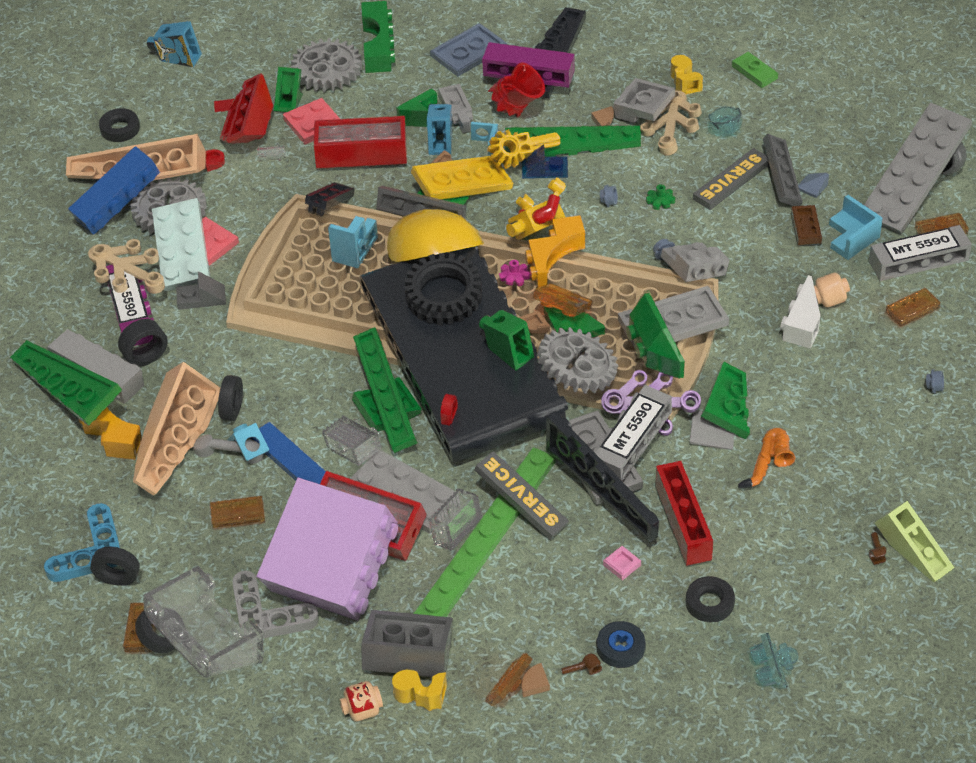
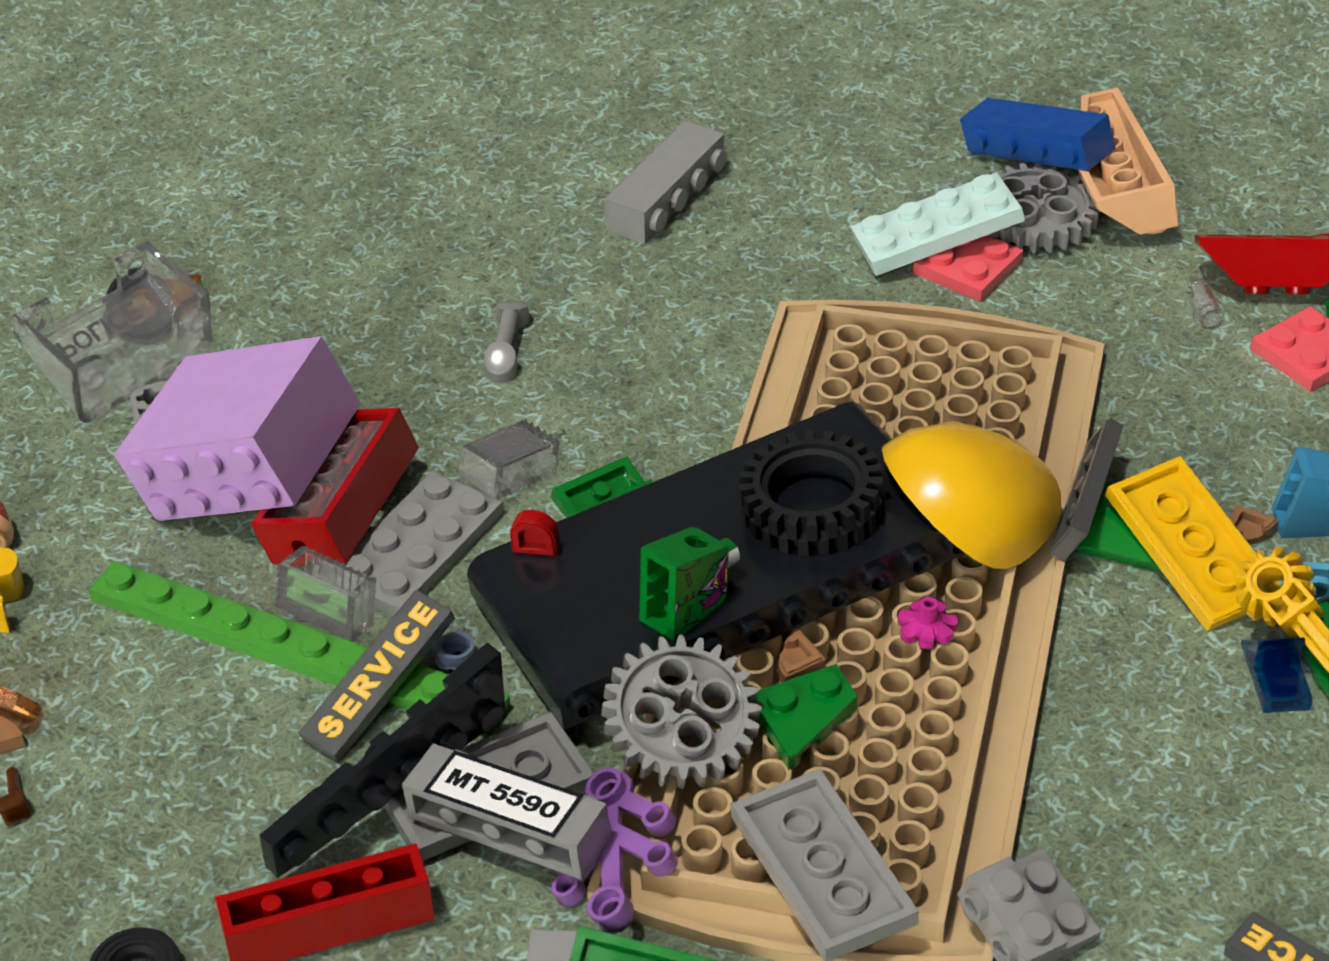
camera: 85 degrees right, 5 degrees down
(72, 385) = (608, 148): green wing -> none
(87, 553) = (300, 244): dark azure beam -> none
(103, 254) = (885, 143): tan plant -> none
(115, 556) = (257, 243): black tyre -> none
(117, 436) = (560, 197): light orange arch -> none
(119, 134) = (1225, 150): black tyre -> none
(130, 304) = (803, 194): brick -> none
(135, 332) = (704, 209): black tyre -> none
(174, 425) = (545, 271): light nougat wedge -> none
(205, 294) = (844, 269): dark grey slope -> none
(214, 159) = (1172, 245): red tile -> none
(230, 397) = (601, 295): black tyre -> none
(237, 511) = (373, 360): clear orange plate -> none
(244, 432) = (515, 339): medium azure bracket -> none
(289, 456) = (487, 409): blue tile -> none
(328, 197) = (1091, 373): black hinge -> none
(353, 243) = (942, 396): medium azure panel -> none
(360, 142) = (1250, 397): red brick -> none
(385, 390) = (600, 488): green tile -> none
(406, 643) = (72, 559): dark grey slope -> none
(536, 218) = (1078, 638): torso -> none
(563, 299) = (830, 673): clear orange plate -> none
(564, 237) = (970, 651): light orange arch -> none
(609, 195) = (1210, 781): sand blue plate -> none
(619, 655) = (40, 862): black bush -> none
(622, 563) = (235, 840): bright pink tile -> none
(653, 338) = (740, 806): green wedge -> none
(657, 249) = (1069, 863): sand blue plate -> none
(660, 197) = (1236, 861): green plant -> none

